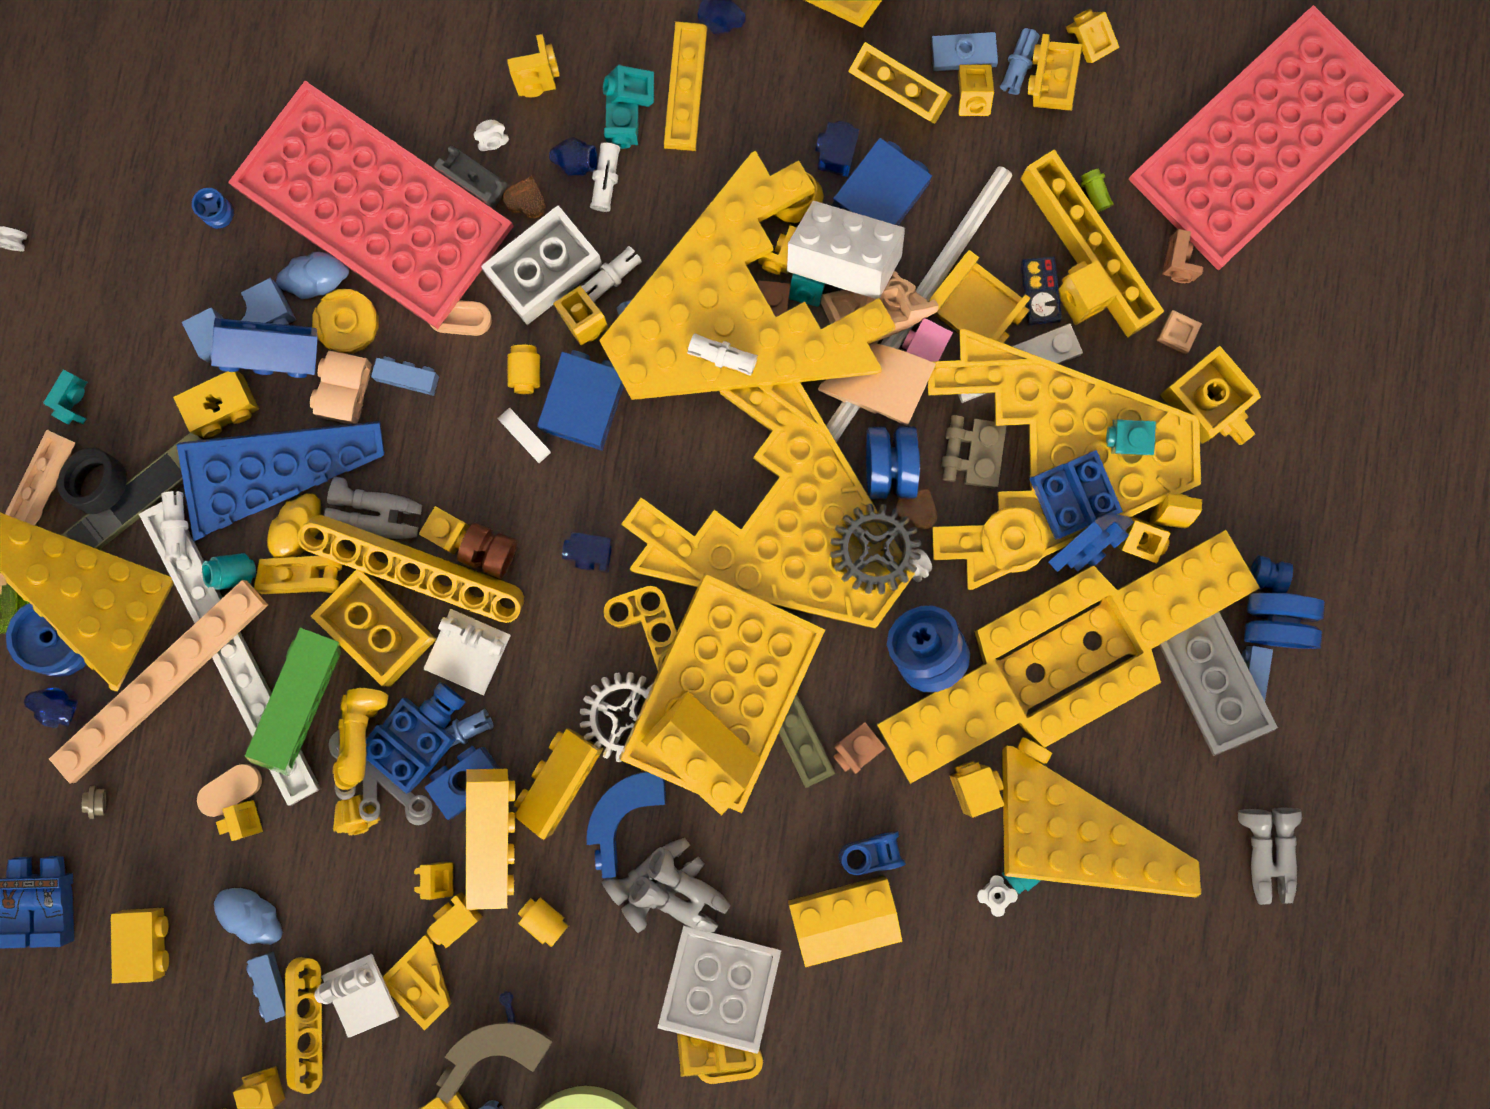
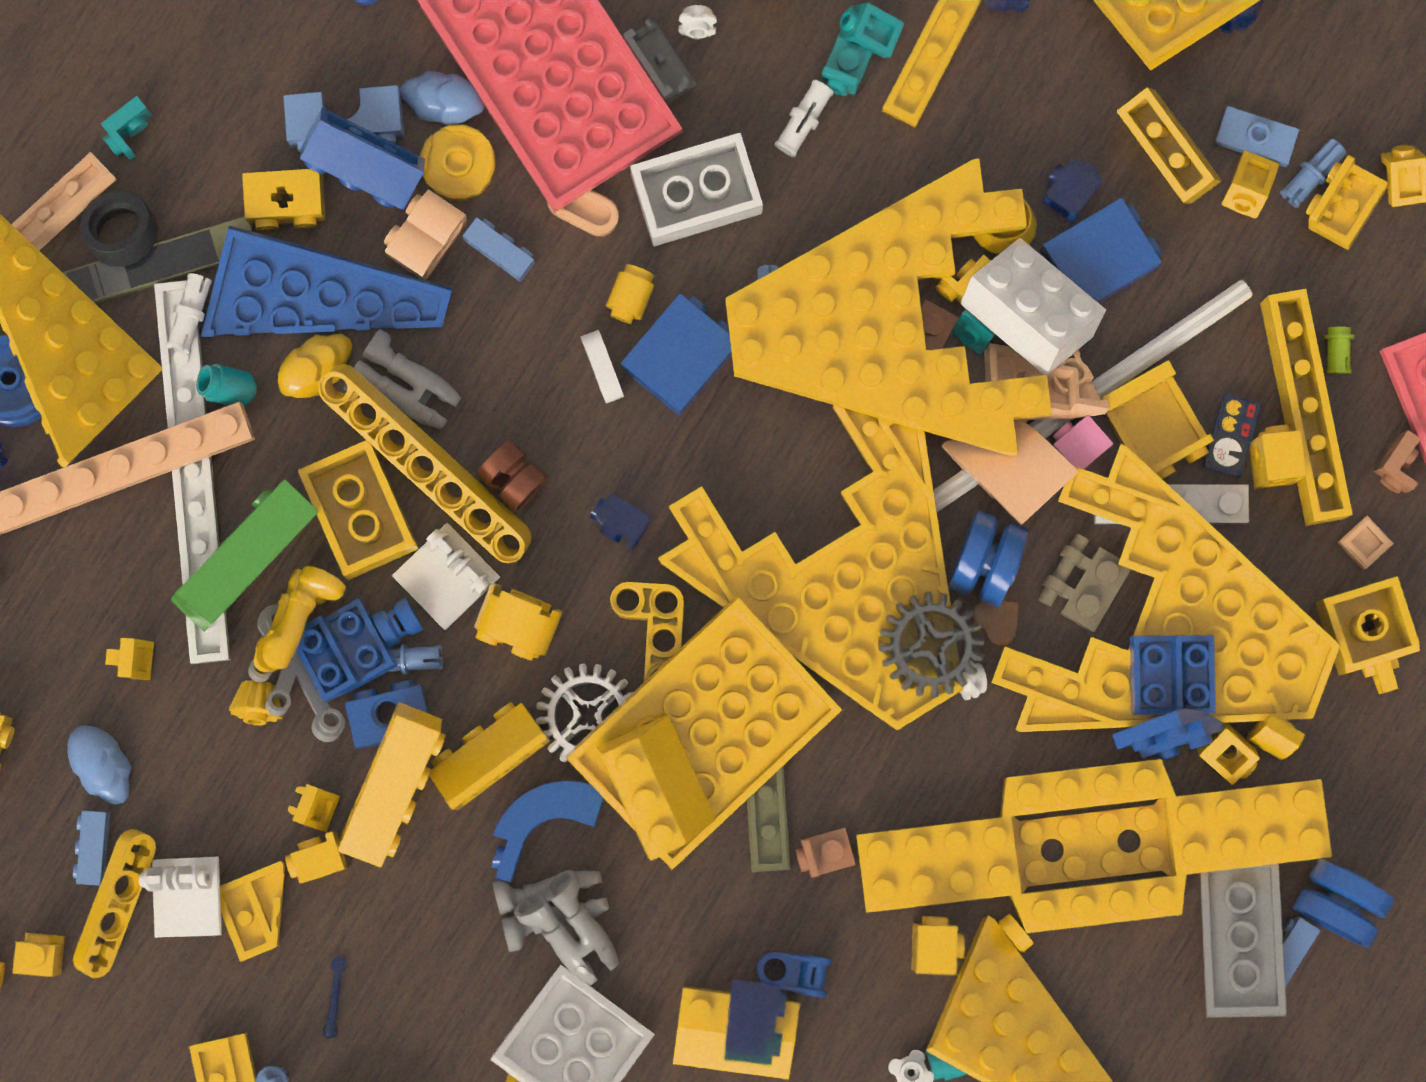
camera: 20 degrees right, 0 degrees up
(229, 789) = (132, 620): light nougat tile -> none
(296, 575) = (297, 419): yellow plate -> none
(444, 530) = (475, 435): yellow bracket -> none
(498, 1039) = (306, 1000): dark tan arch -> none
(525, 198) = (707, 105): clear orange tile -> none
(537, 665) = (517, 621): none -> yellow brick
(542, 921) = (411, 898): yellow brick -> none
(574, 156) = (779, 83): clear blue rock -> none
(581, 315) = (716, 261): yellow slope -> none
(611, 274) = (766, 228): white pin -> none
(722, 354) = (851, 369): white pin -> none
(857, 911) = (753, 1022): none -> clear blue brick
(928, 648) = (945, 775): blue wheel -> none
(1014, 539) = (1087, 695): yellow tile -> none
(1131, 437) = (1257, 637): teal bracket -> none
(1272, 575) = (1353, 849): blue wheel -> none

